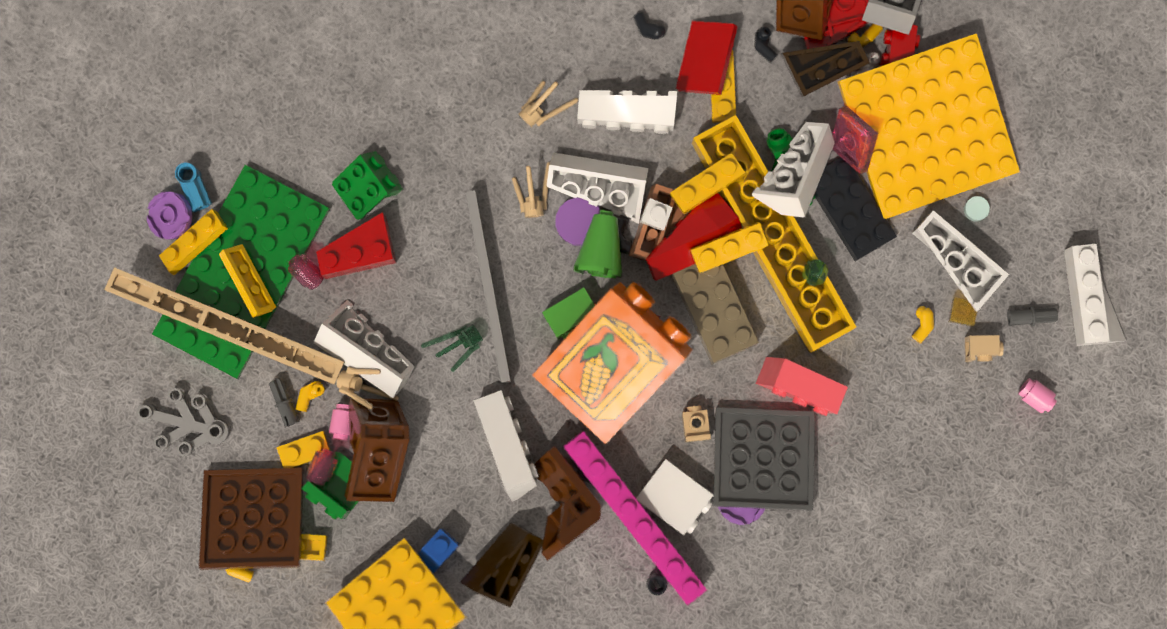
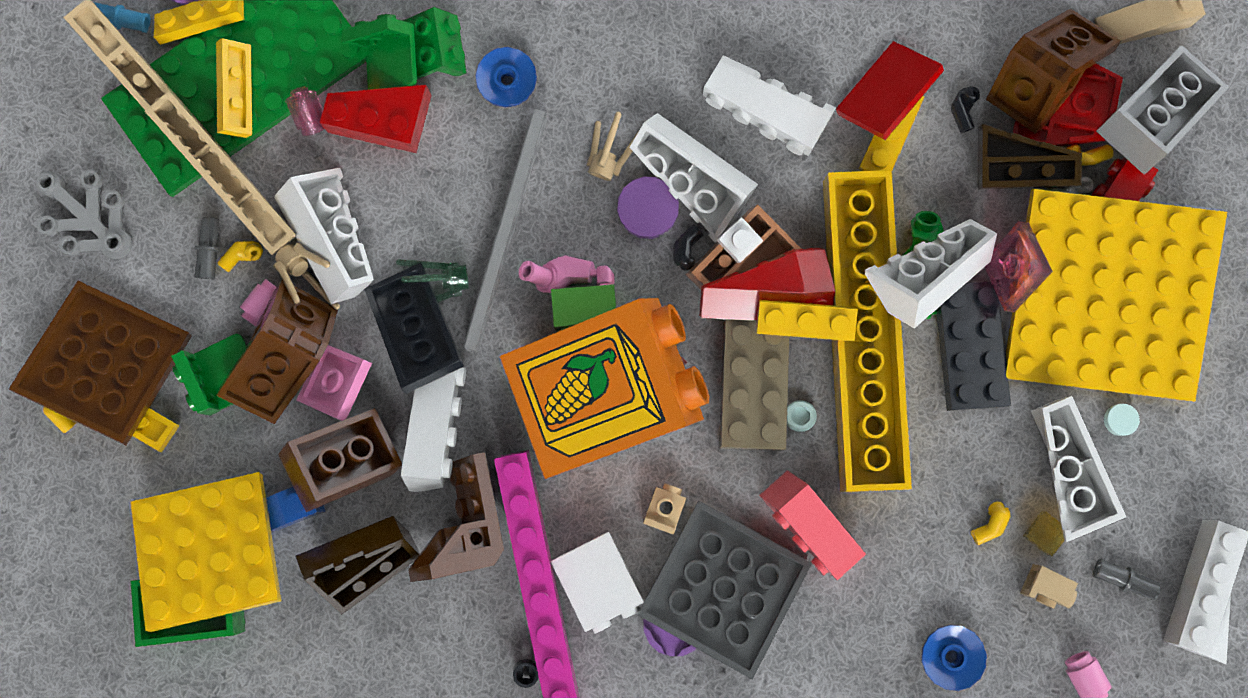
camera: 25 degrees right, 0 degrees up
(138, 268) = (125, 18): none -> dark azure axle
(302, 450) = (203, 314): yellow plate -> none
(322, 466) = (209, 342): clear pink brick -> none
(344, 201) = (390, 50): none -> green bracket
(425, 452) = (334, 383): none -> bright pink plate
(427, 168) = (503, 63): none -> blue dish
(456, 501) = (339, 459): none -> reddish brown brick
(460, 386) = (413, 329): none -> black plate
(531, 111) = (656, 55): tan plant -> none
(543, 296) = (563, 272): none -> bright pink arm
(601, 248) = (656, 248): bright green cone -> none
(647, 29) = (837, 27): black arm -> none
(707, 183) = (818, 233): yellow plate -> none
(757, 314) = (800, 416): none -> light aqua tile
(815, 272) = (894, 400): clear green piece -> none
(953, 424) = (969, 662): none -> blue dish

